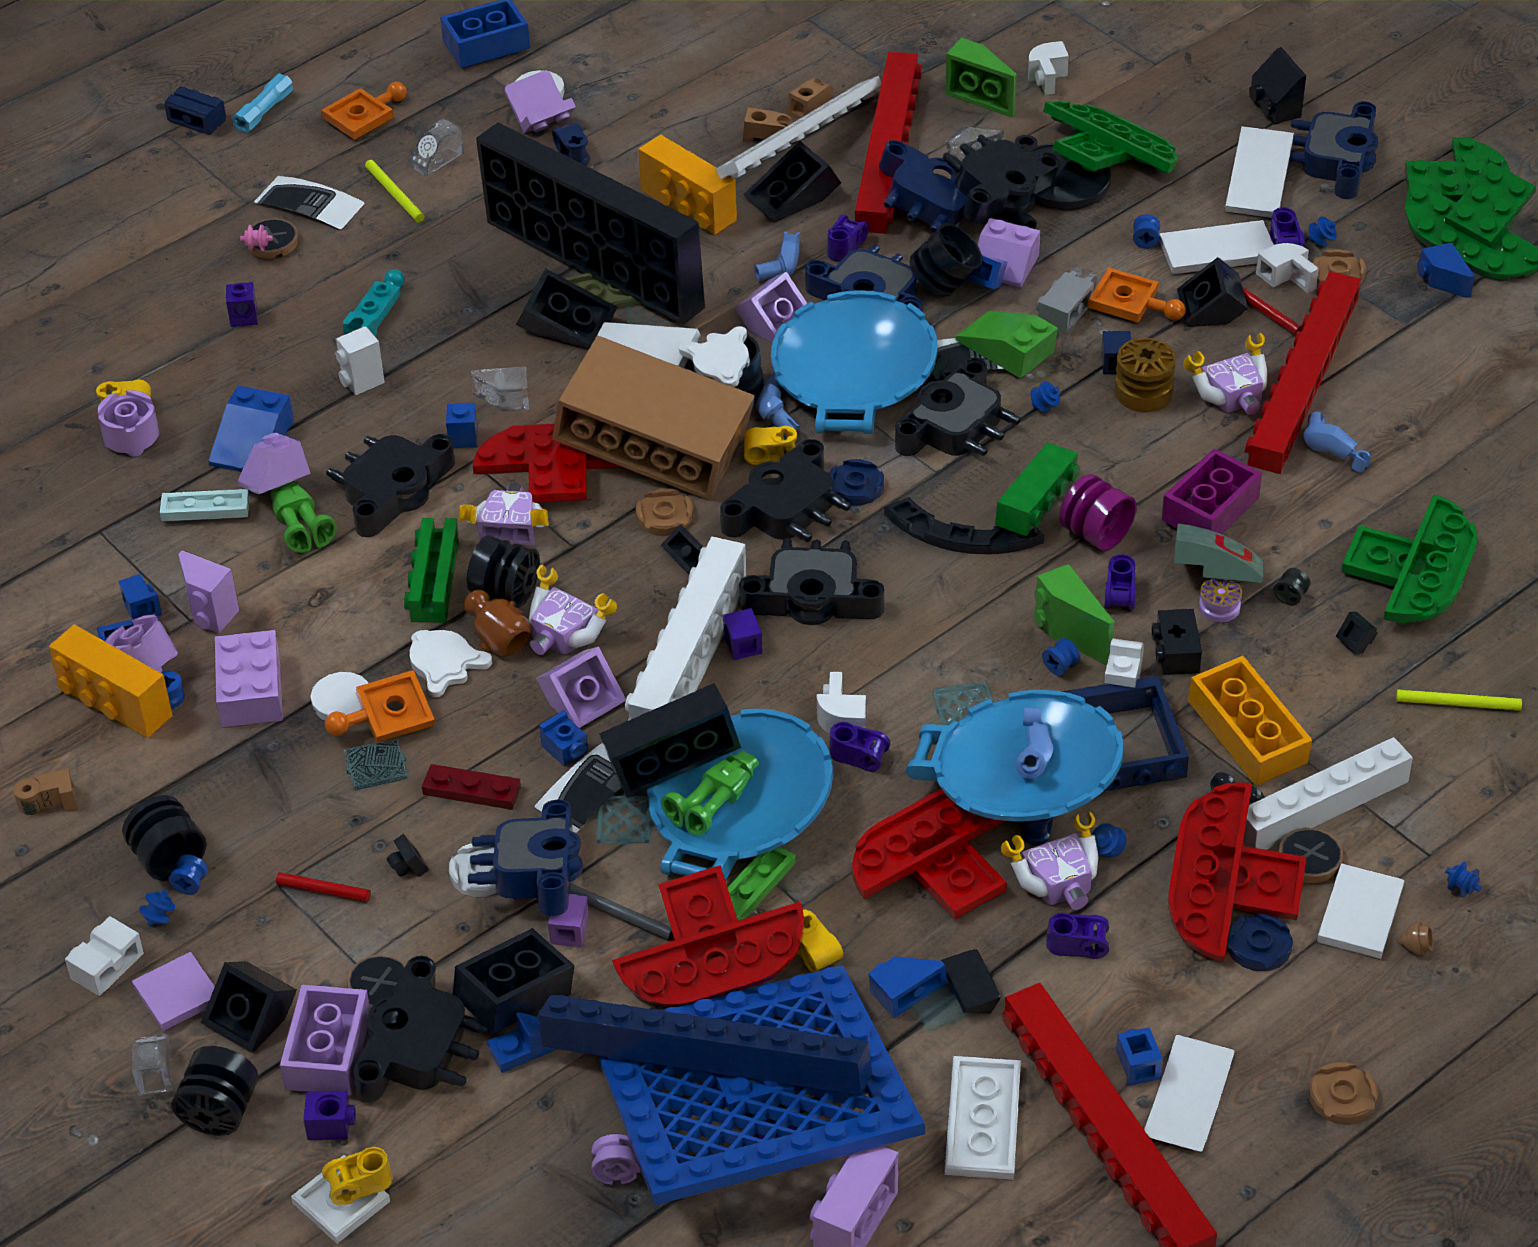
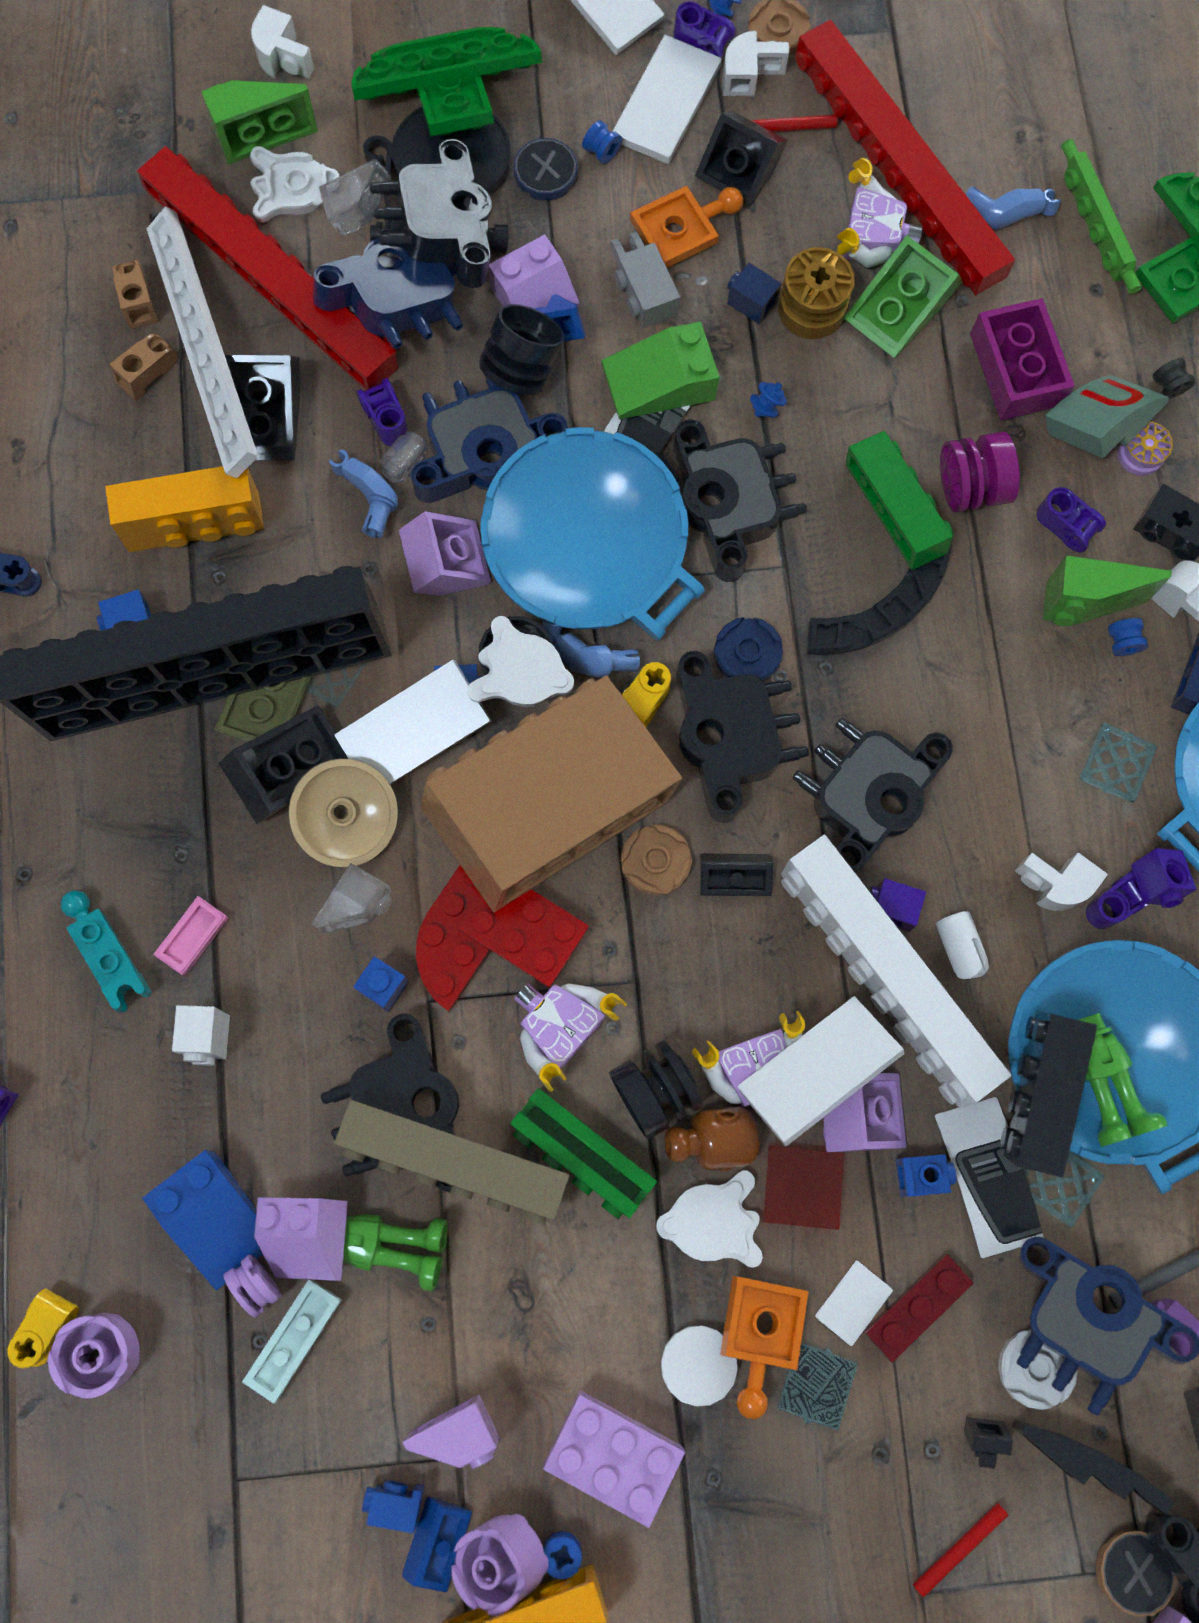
camera: 60 degrees left, 30 degrees up
(223, 466) = (252, 1286): none -> lavender wheel
(374, 496) = (452, 1160): none -> dark tan brick
(419, 338) = (191, 936): none -> bright pink tile
(434, 919) = (1082, 1462): none -> black slope
(447, 754) = (854, 1303): none -> white sticker
(504, 689) = (803, 1187): none -> clear red plate
(549, 335) = (368, 817): none -> tan dish
(584, 629) = (820, 1070): none -> white tile
(745, 681) = (963, 945): none -> white arm
(824, 254) = (402, 457): none -> clear brick
(888, 742) = (1163, 877): none -> dark purple brick
(951, 119) = (288, 183): none -> white tile
(1100, 220) = (545, 168): none -> black tile
(1199, 422) = (903, 297): none -> bright green slope
(1377, 487) = (1100, 217): none -> bright green plate

